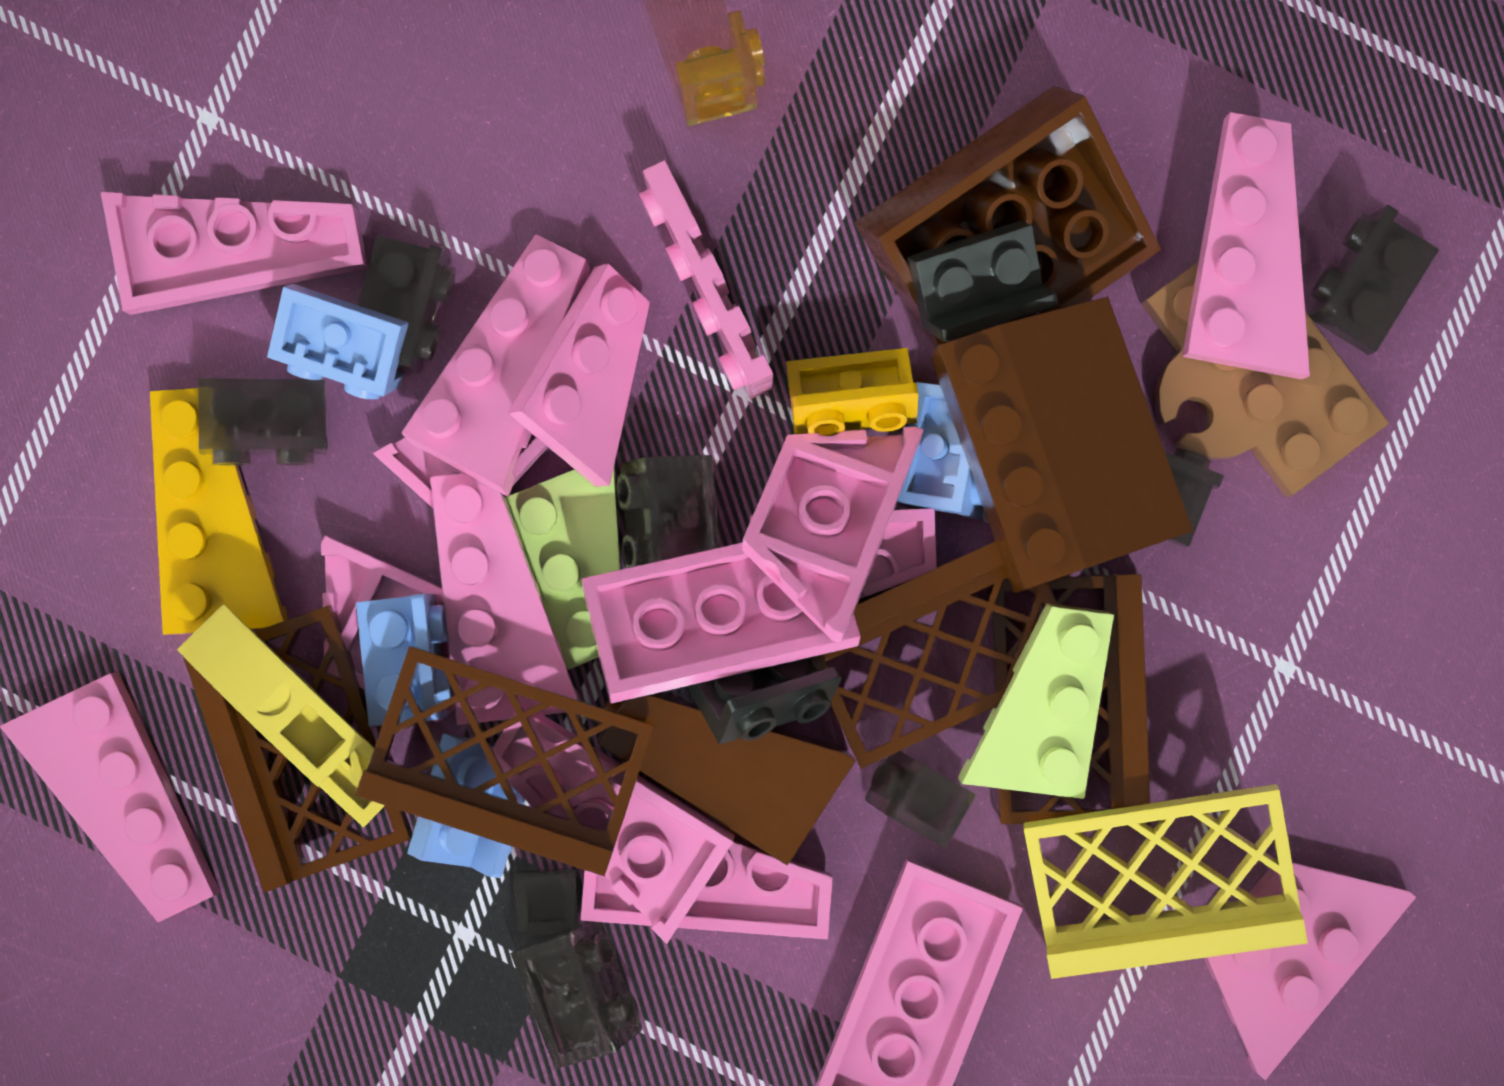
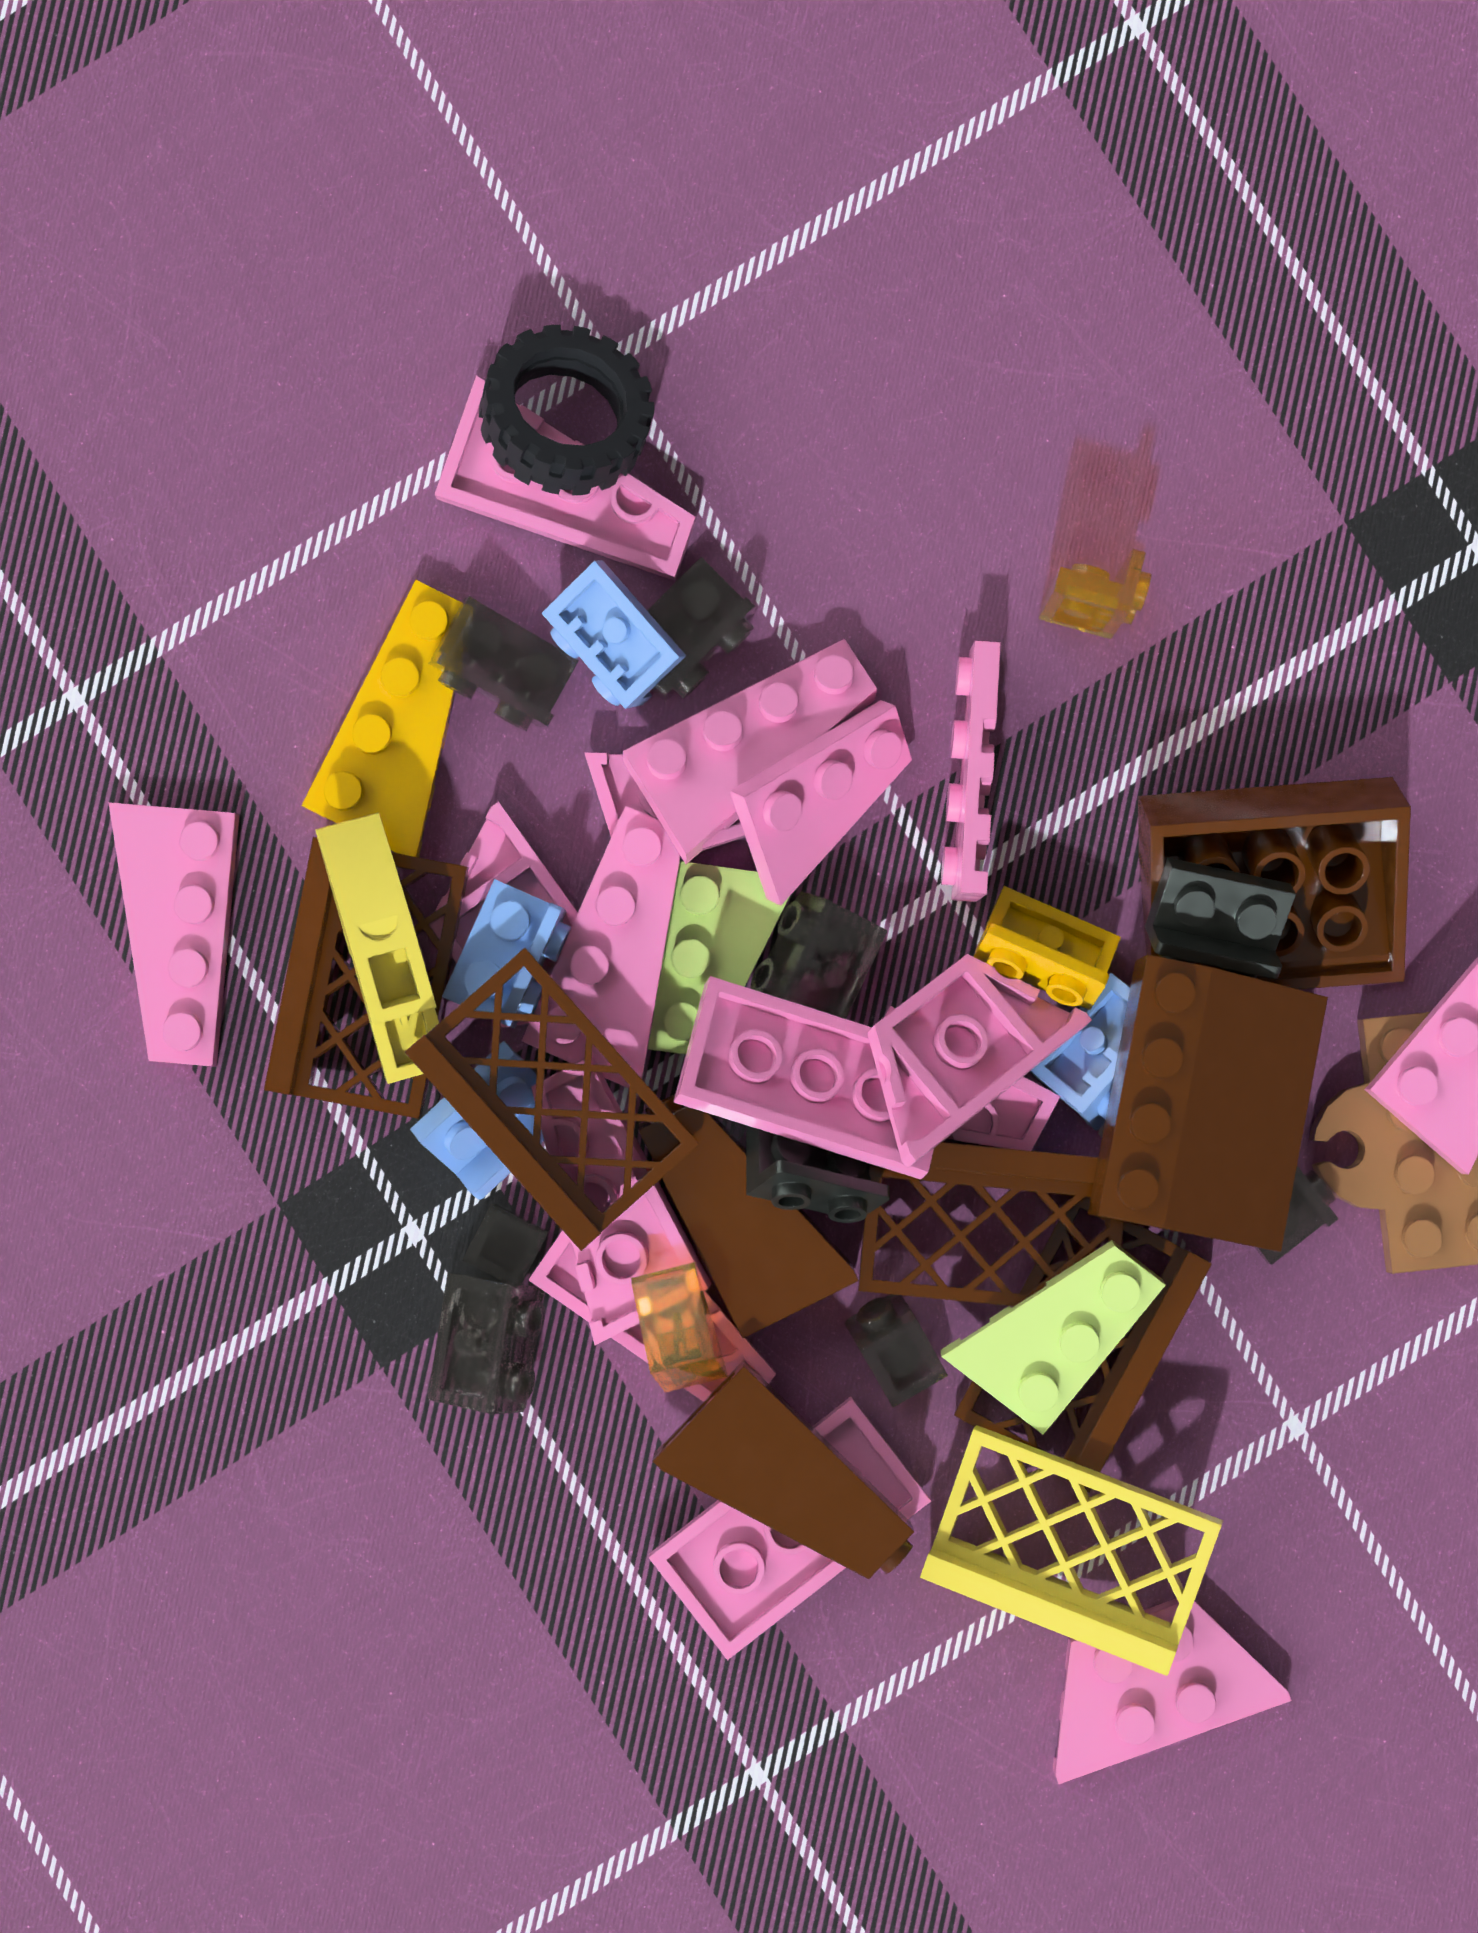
camera: 30 degrees right, 0 degrees up
(179, 128) = (585, 359): none -> black tyre
(726, 891) = (677, 1328): none -> clear yellow slope
(885, 959) = (778, 1469): none -> reddish brown slope

